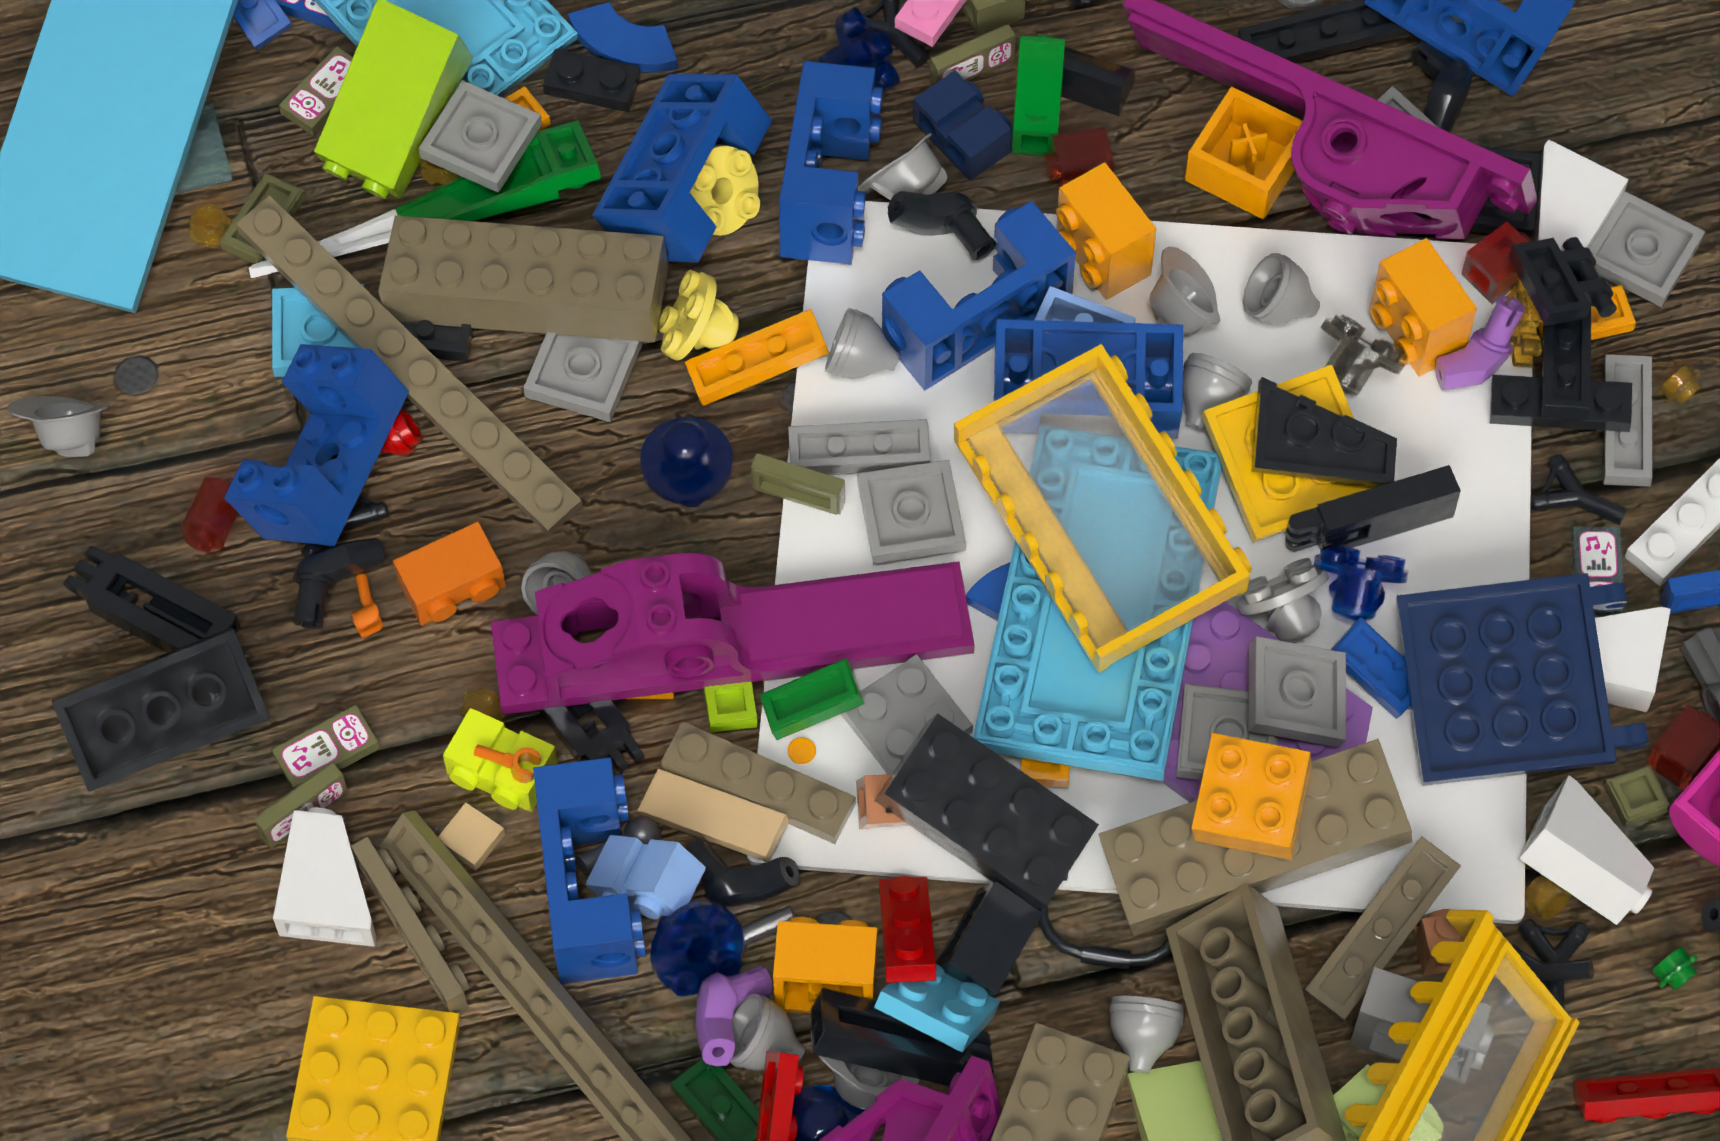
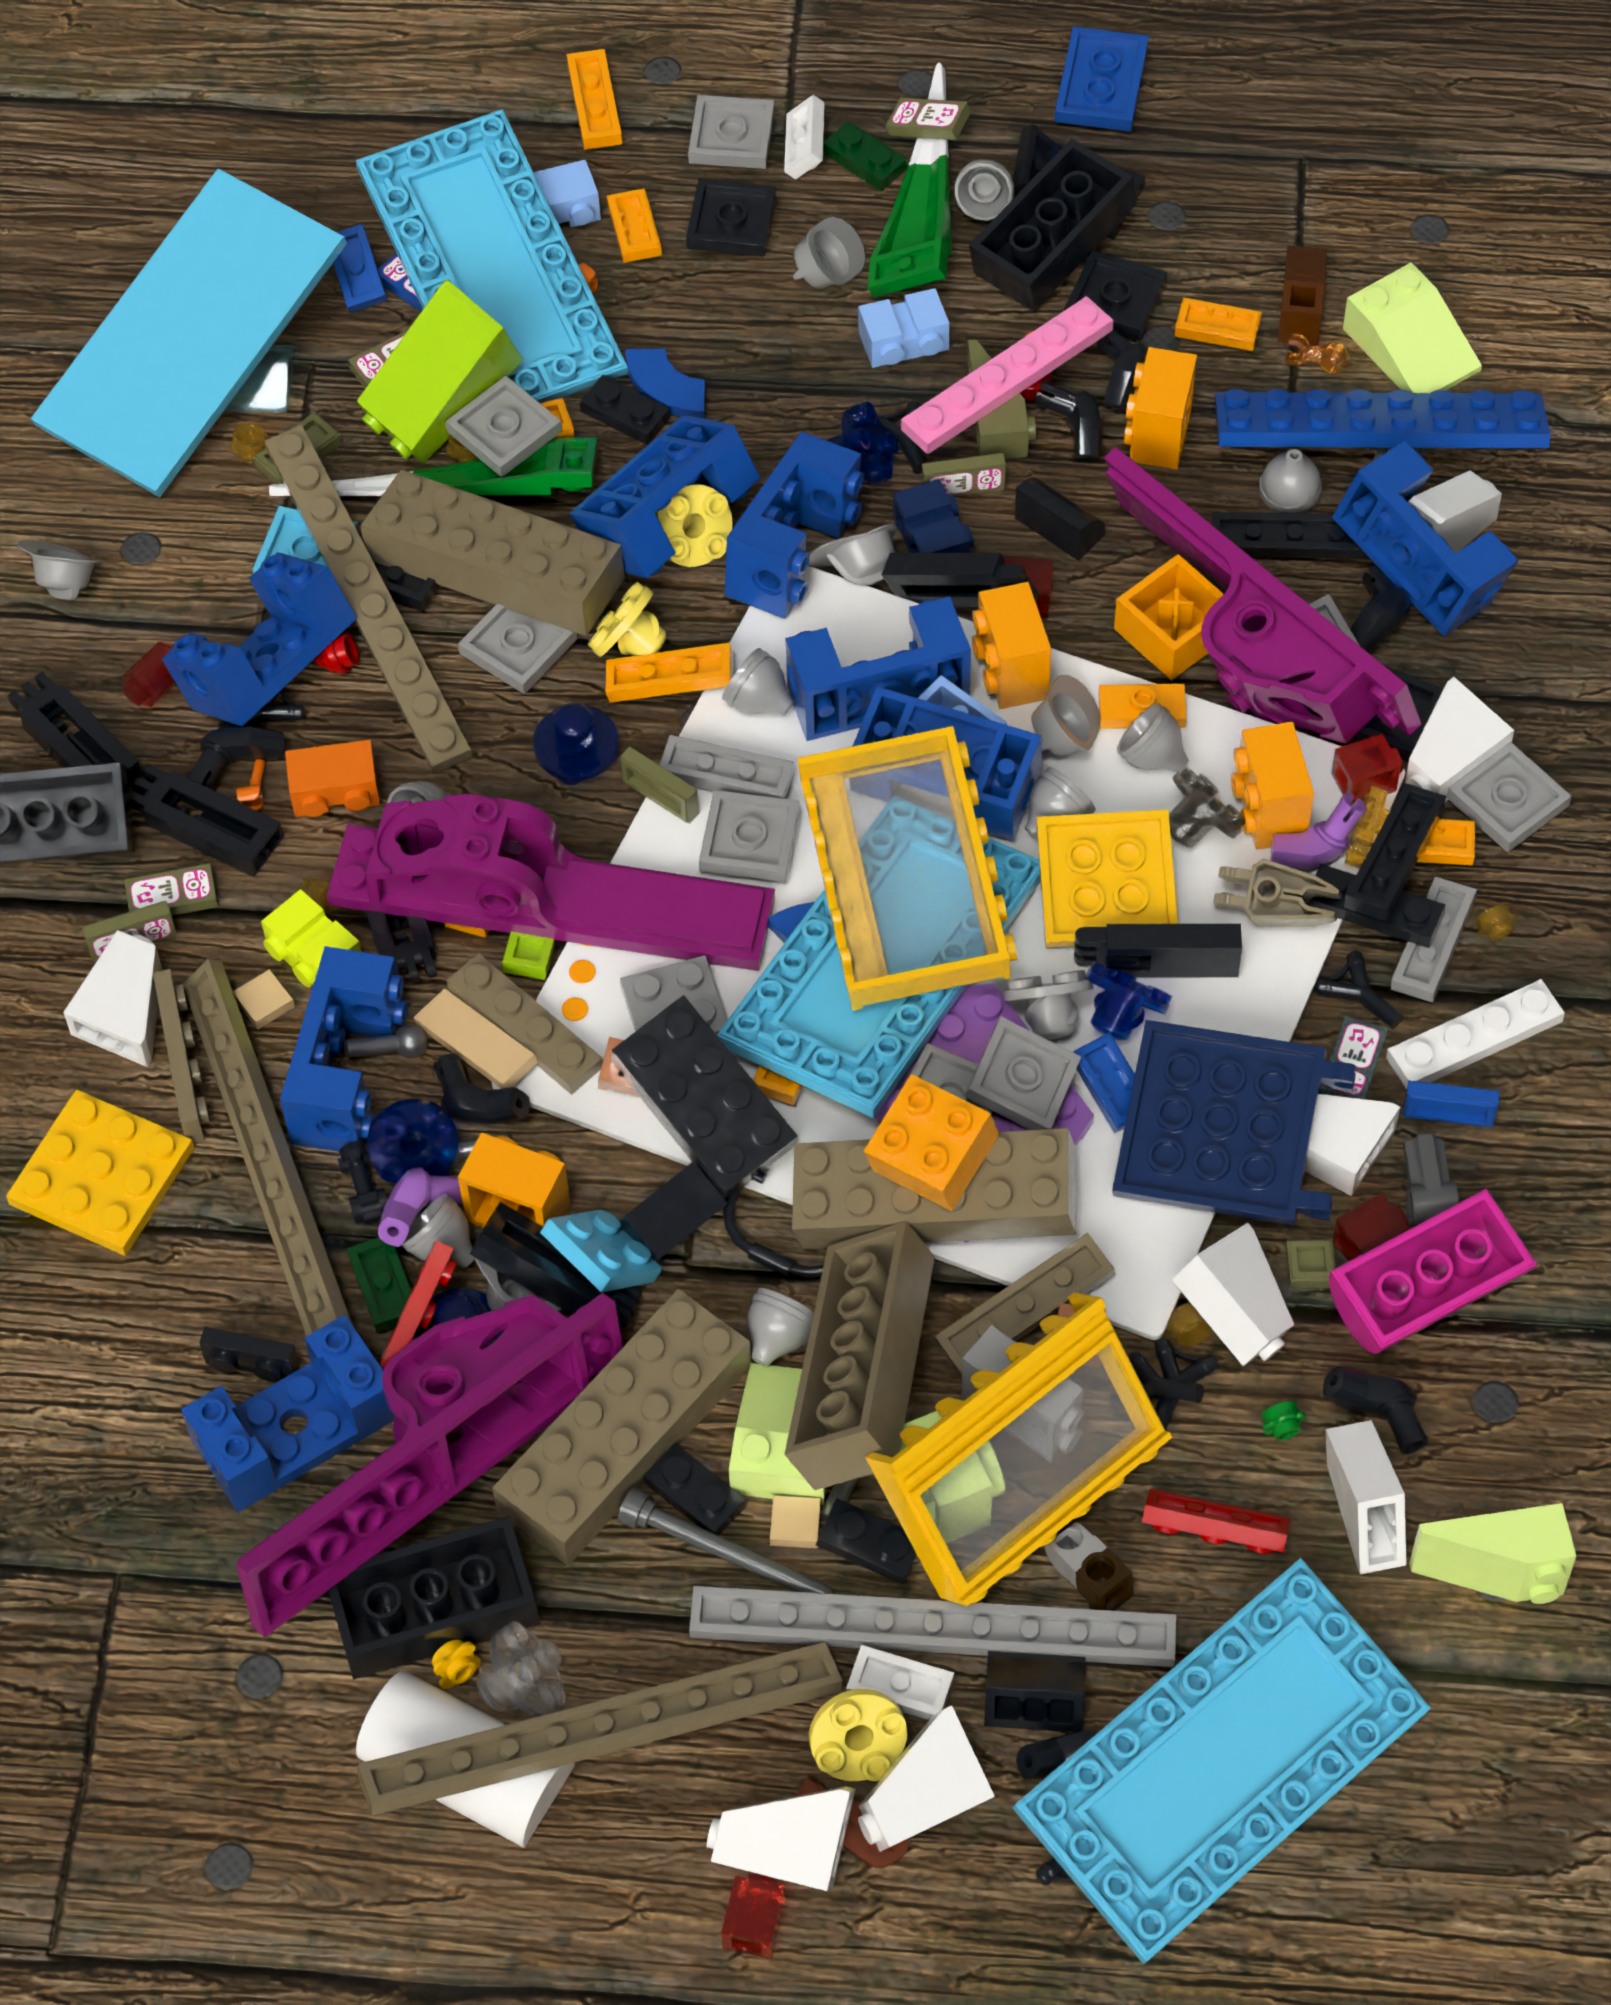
camera: 20 degrees right, 5 degrees down
(350, 659) = (222, 831): none -> black hinge
(511, 760) = (314, 940): orange hand -> none
(653, 874) = (393, 1067): light blue brick -> none
(671, 1026) = (368, 1203): none -> black bar
(811, 699) = (597, 965): green tile -> none
(907, 929) = (599, 1179): red plate -> none
(942, 215) = (876, 597): black arm -> none
(1017, 173) = (951, 575): none -> black hinge
(1037, 94) = (1002, 509): green slope -> none
(1234, 259) = (1124, 703): none -> light orange plate
(1314, 443) = (1125, 871): black wing -> none
(1467, 422) = (1278, 895): none -> dark tan hinge
(1551, 281) = (1397, 796): black plate -> none

